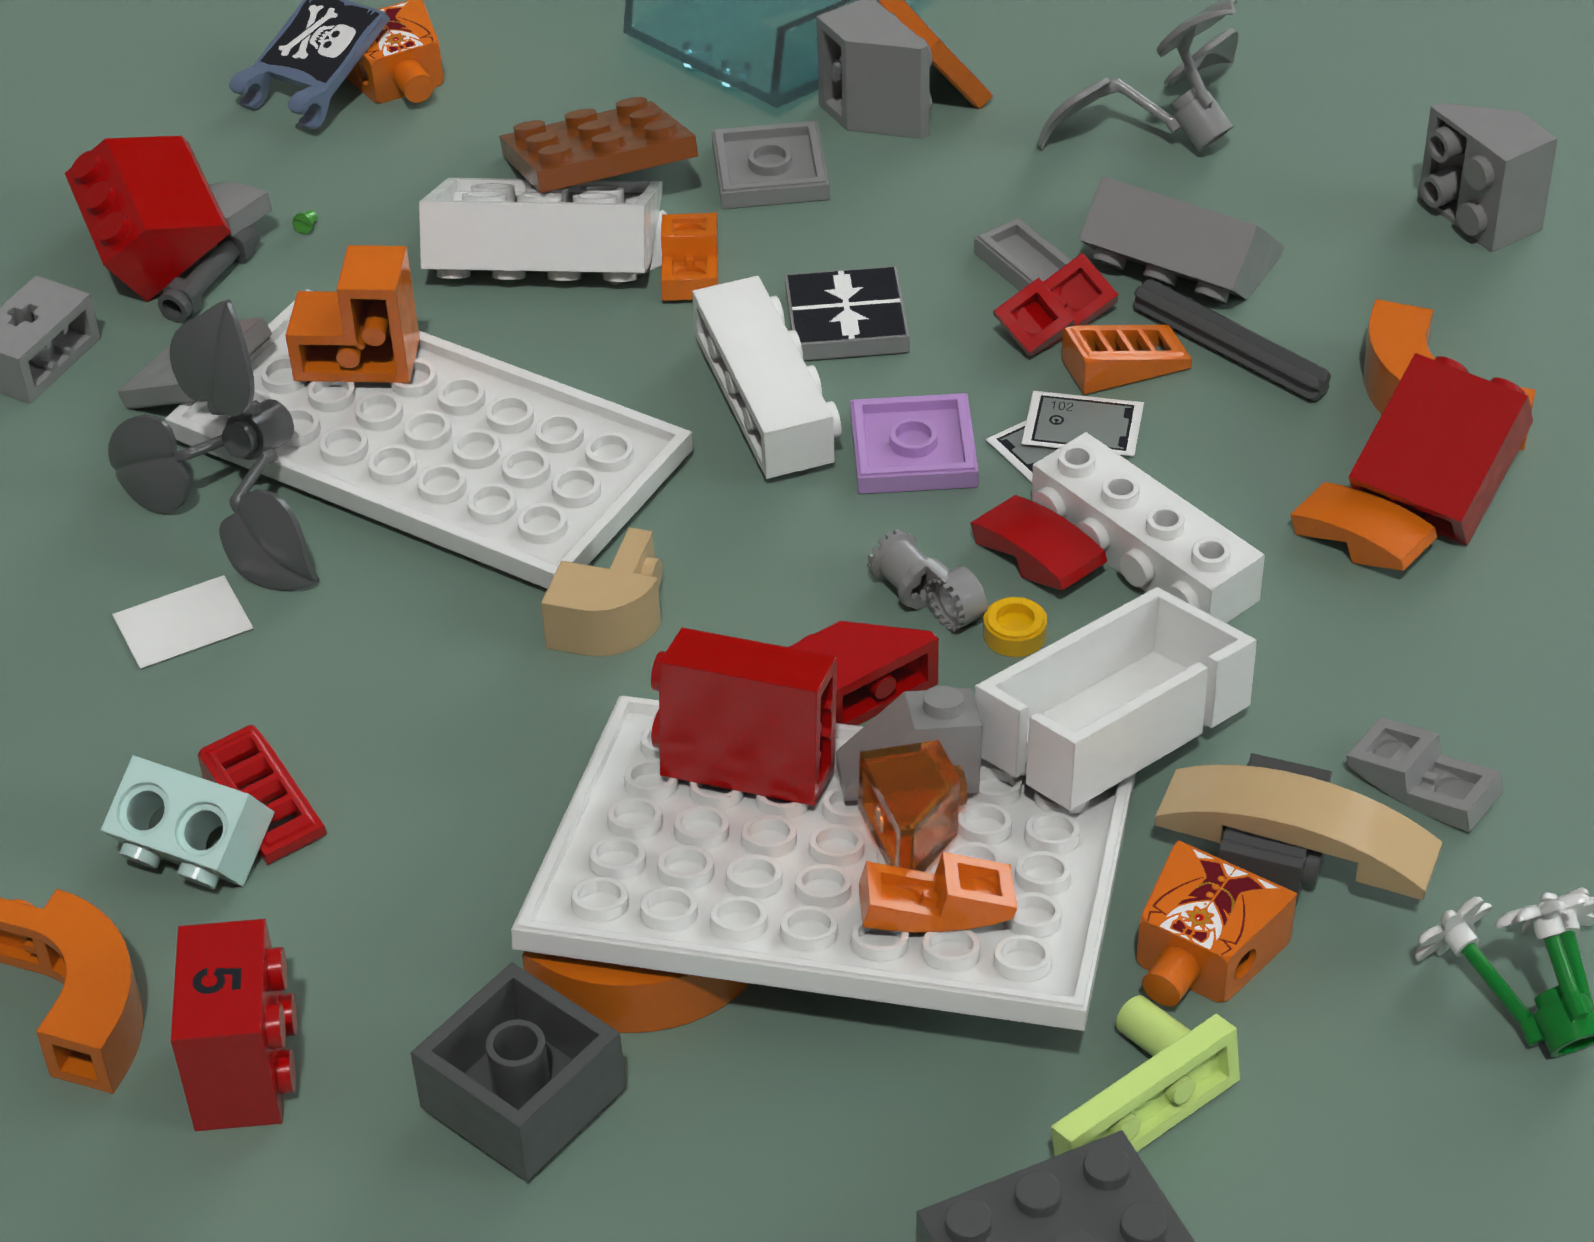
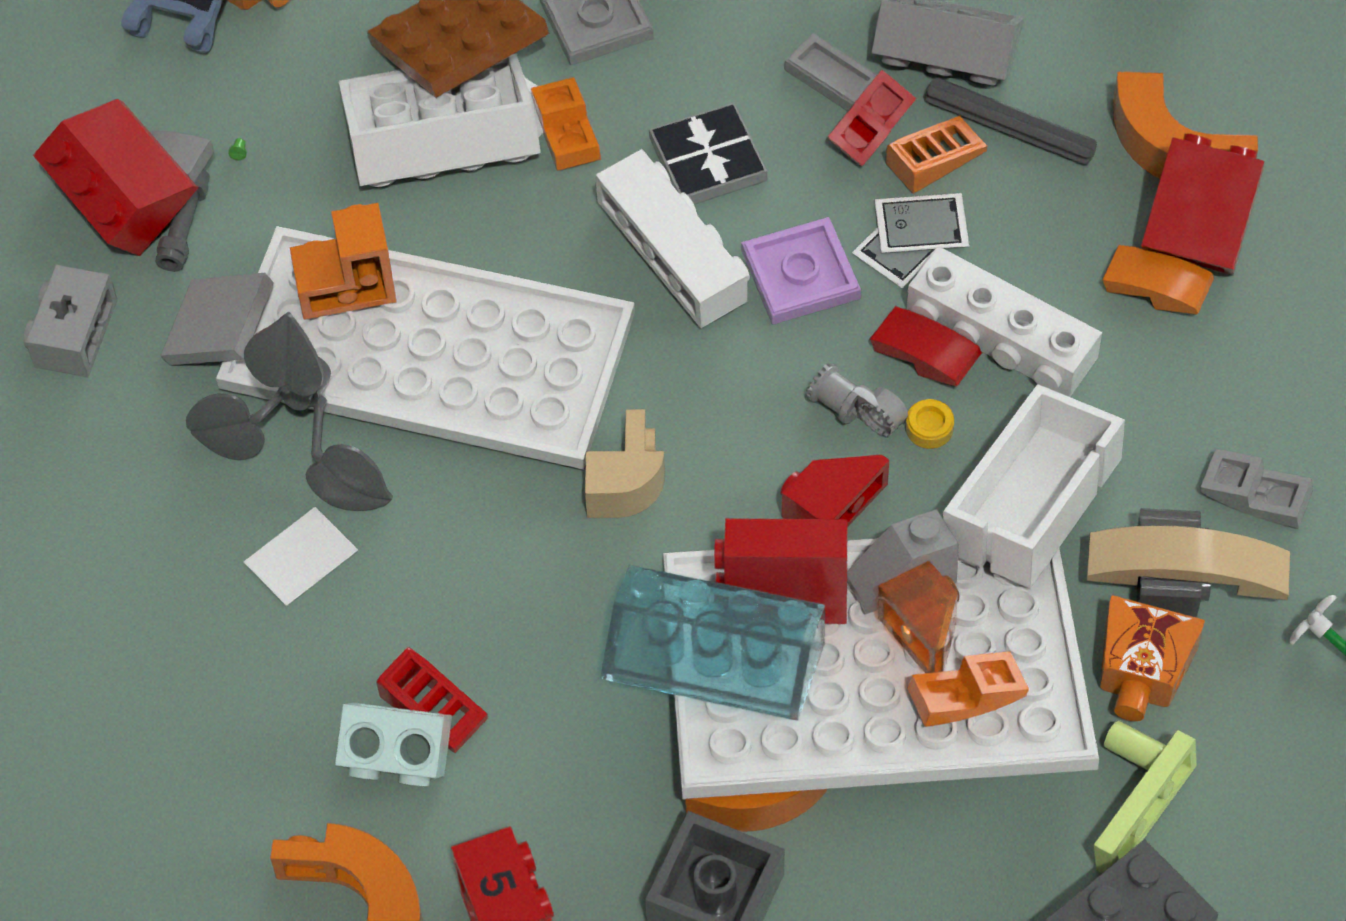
camera: 15 degrees left, 15 degrees up
(627, 778) = (714, 642): none -> clear light blue slope

